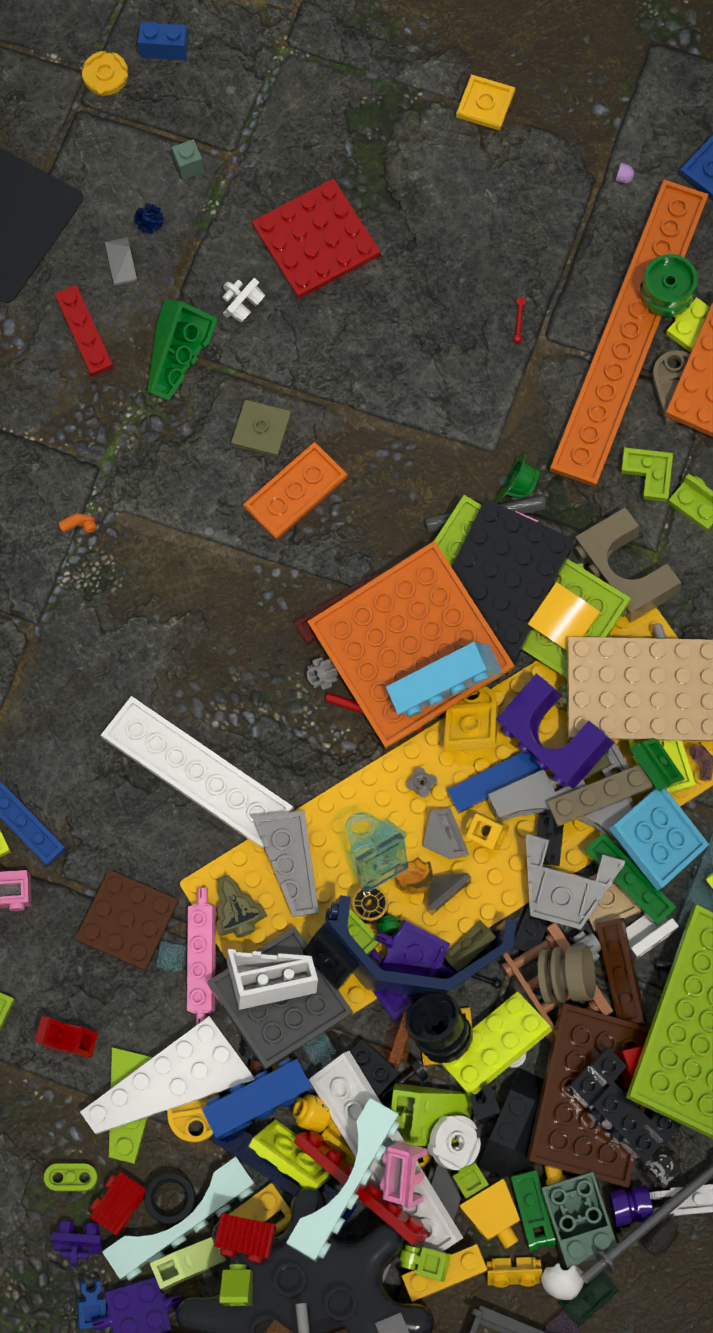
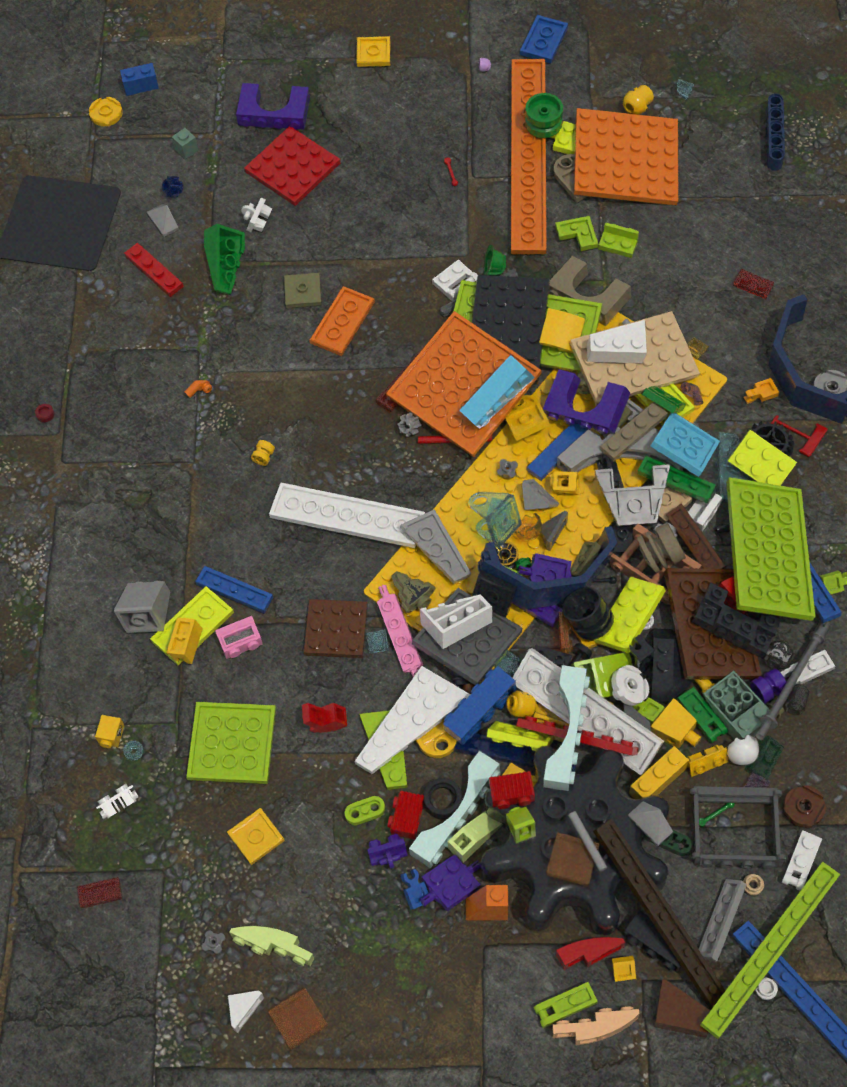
camera: 20 degrees left, 10 degrees down
(125, 645) = (262, 453): none -> yellow wheel
(341, 165) = (292, 115): none -> dark purple arch
(401, 1174) = (604, 711): bright pink window -> none
(430, 1262) = (648, 767): lime plate -> none
(460, 477) = (452, 276): none -> white plate
(626, 670) = (618, 344): none -> white wedge

